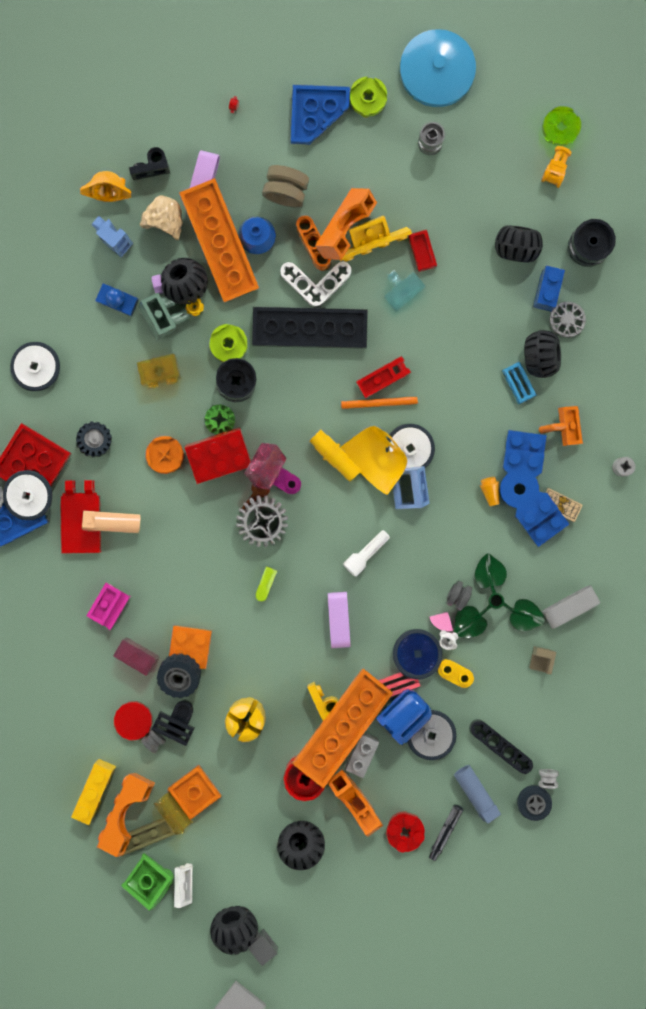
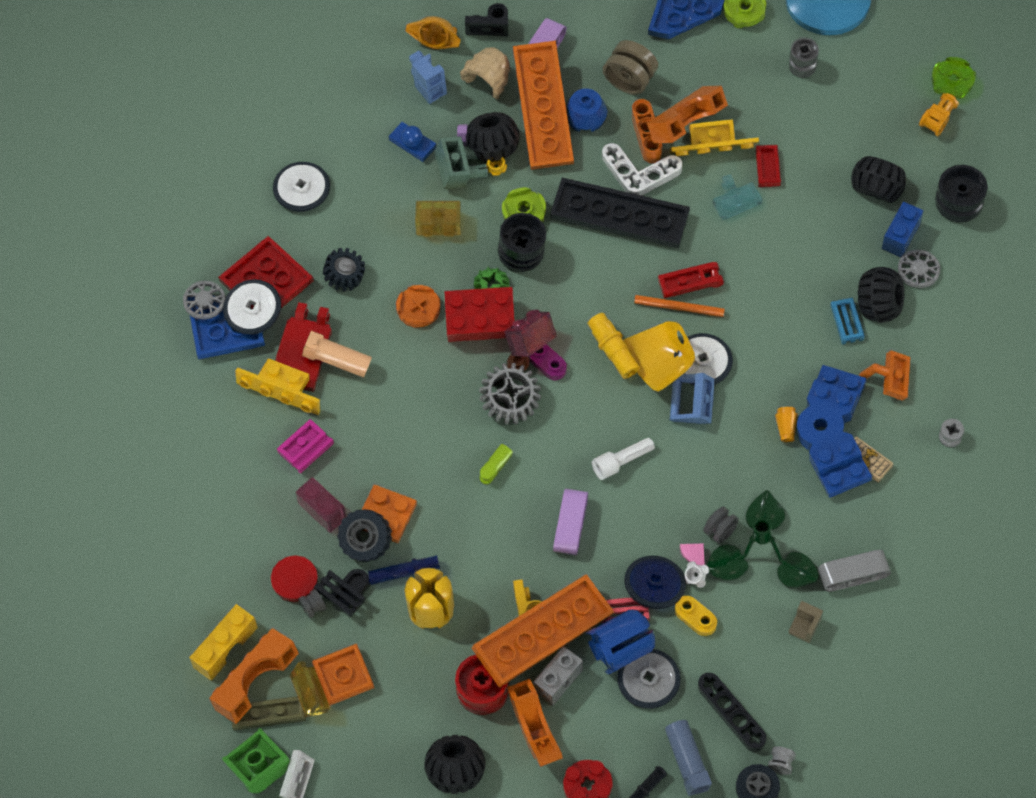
camera: 20 degrees right, 25 degrees down
(72, 554) = (281, 383): none -> yellow bracket
(224, 689) = (402, 570): none -> clear blue pin

